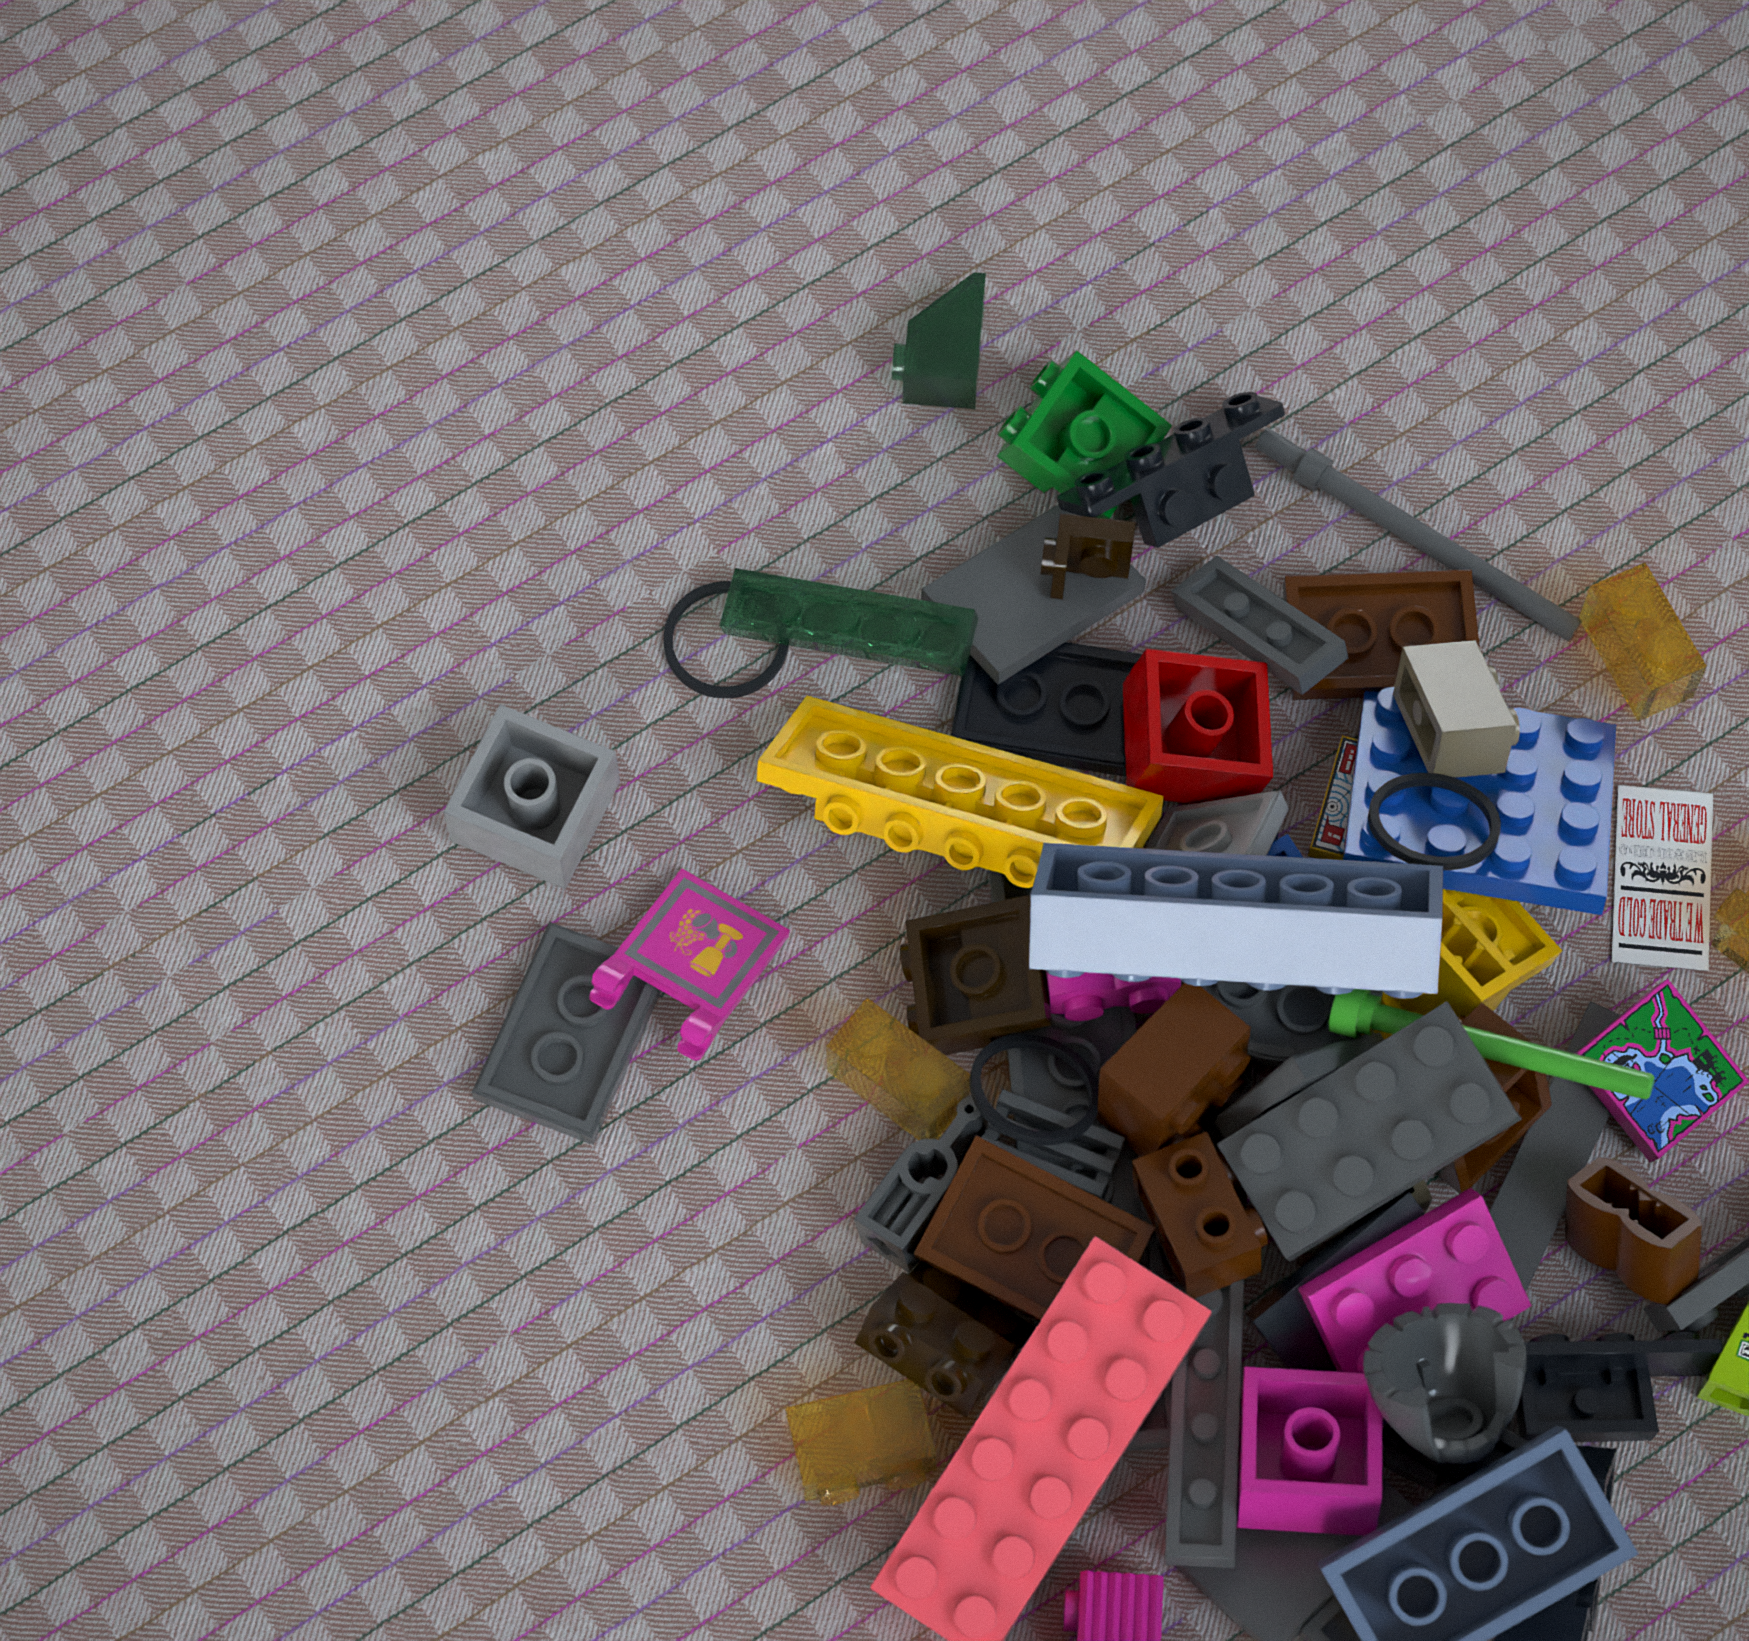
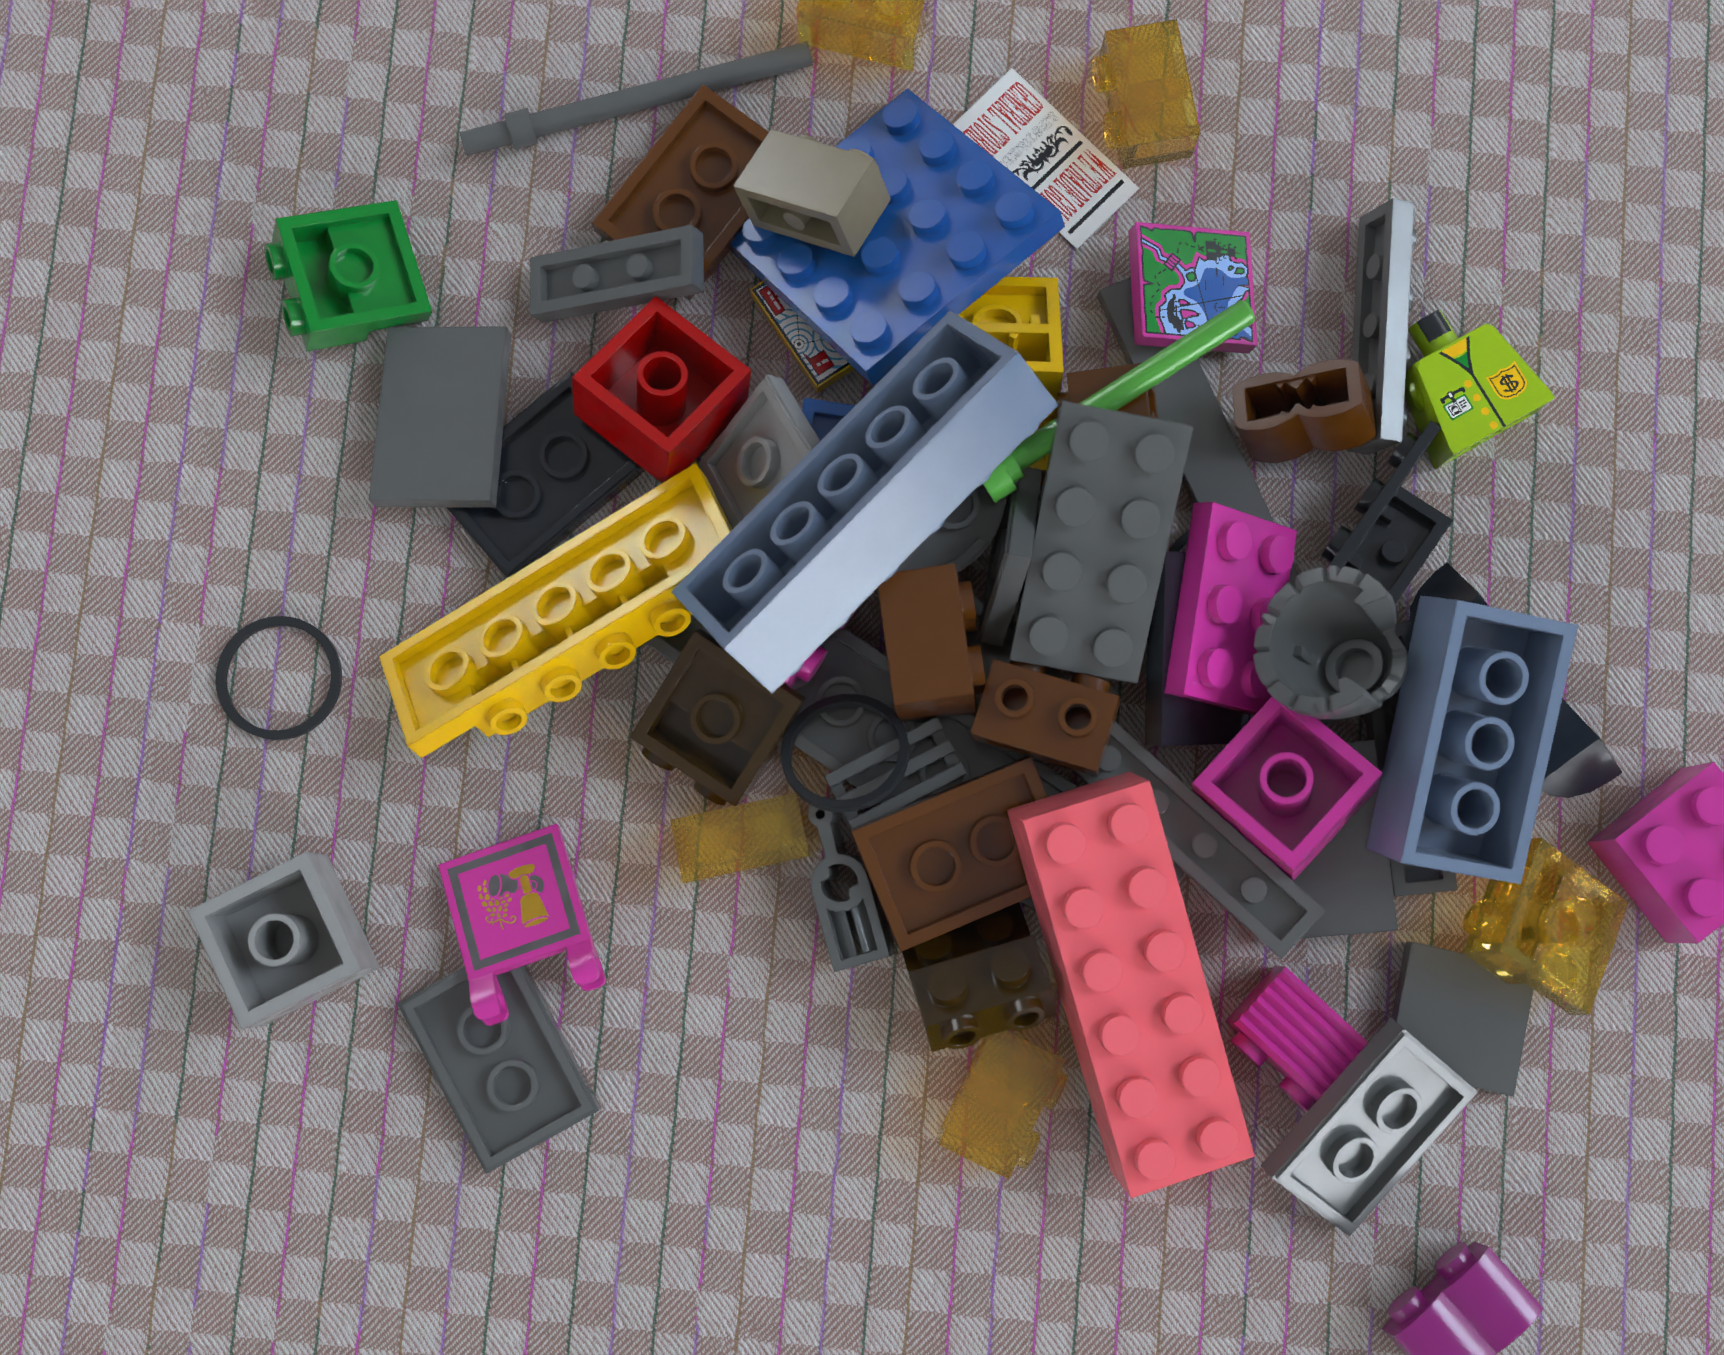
camera: 50 degrees left, 15 degrees up
(849, 621) = (348, 578): clear green plate -> none
(944, 348) = (181, 316): clear green slope -> none
(1087, 547) = (445, 347): dark brown bracket -> none
(1182, 476) = (444, 230): black bracket -> none
(1440, 781) = (916, 325): black piece -> none

